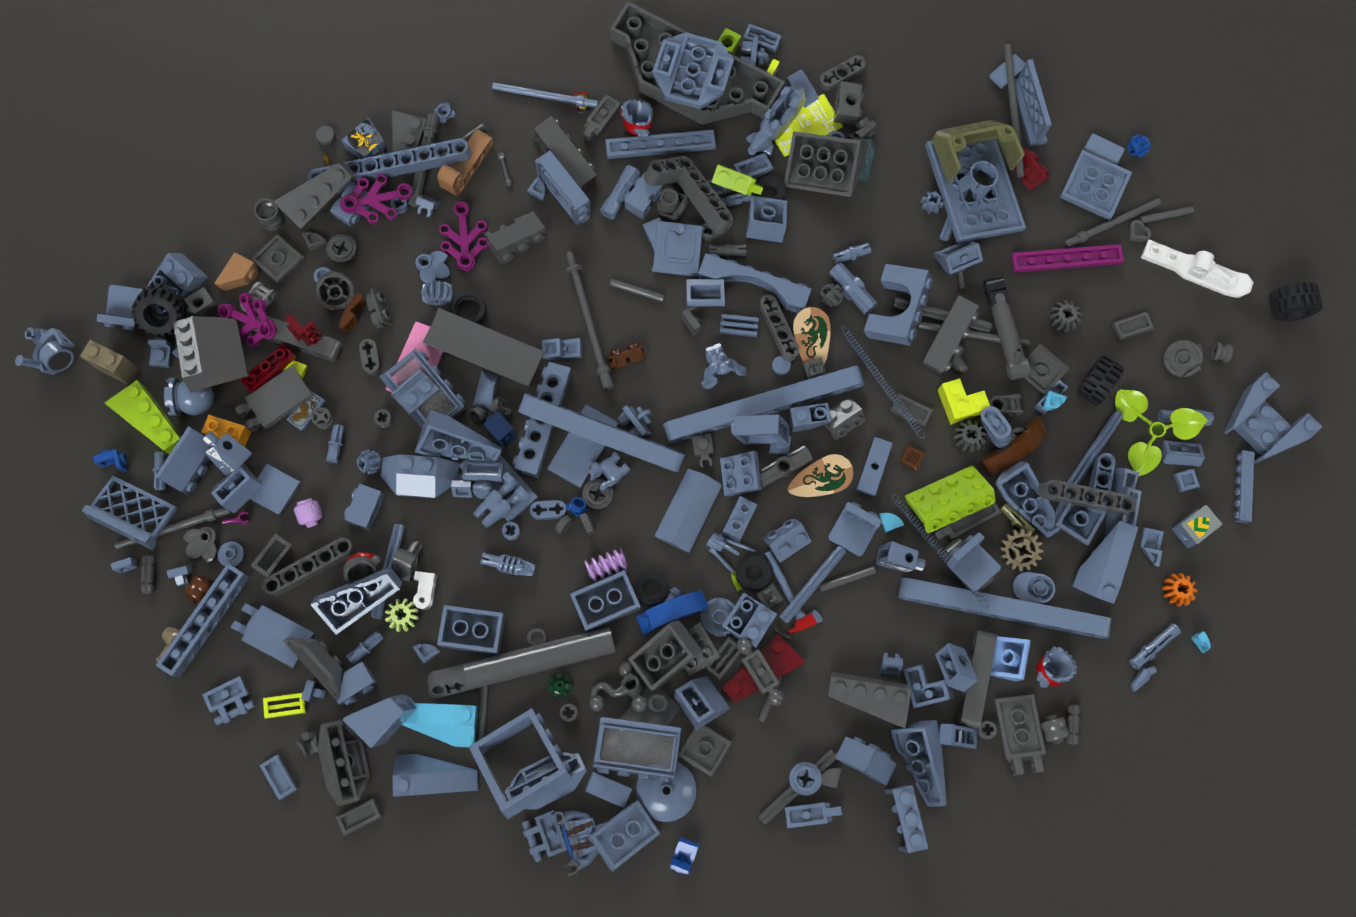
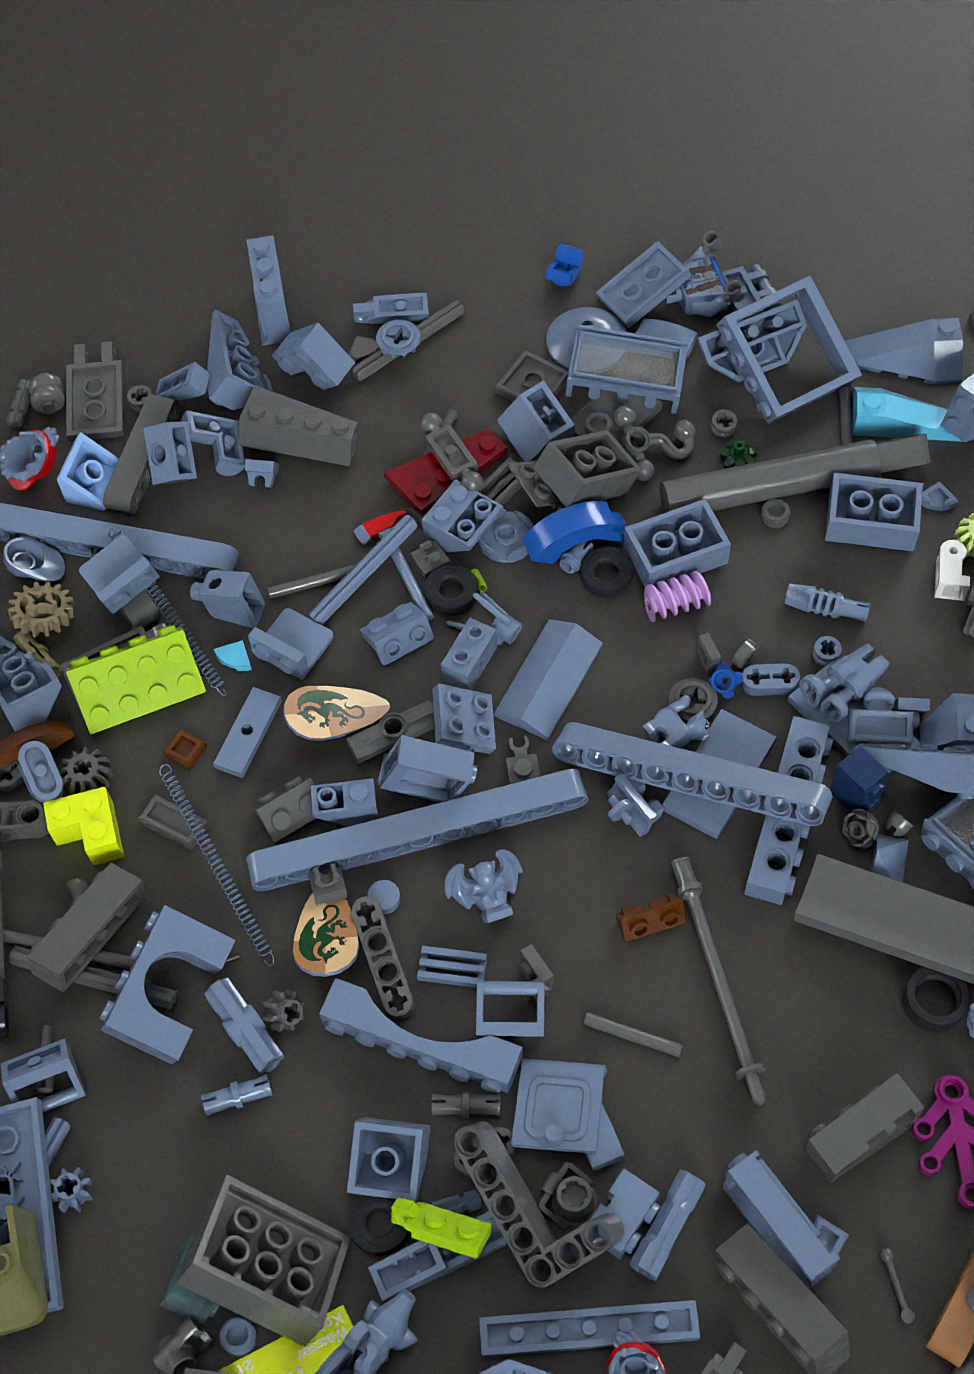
camera: 170 degrees left, 15 degrees down
(562, 349) = (763, 931): sand blue slope -> none

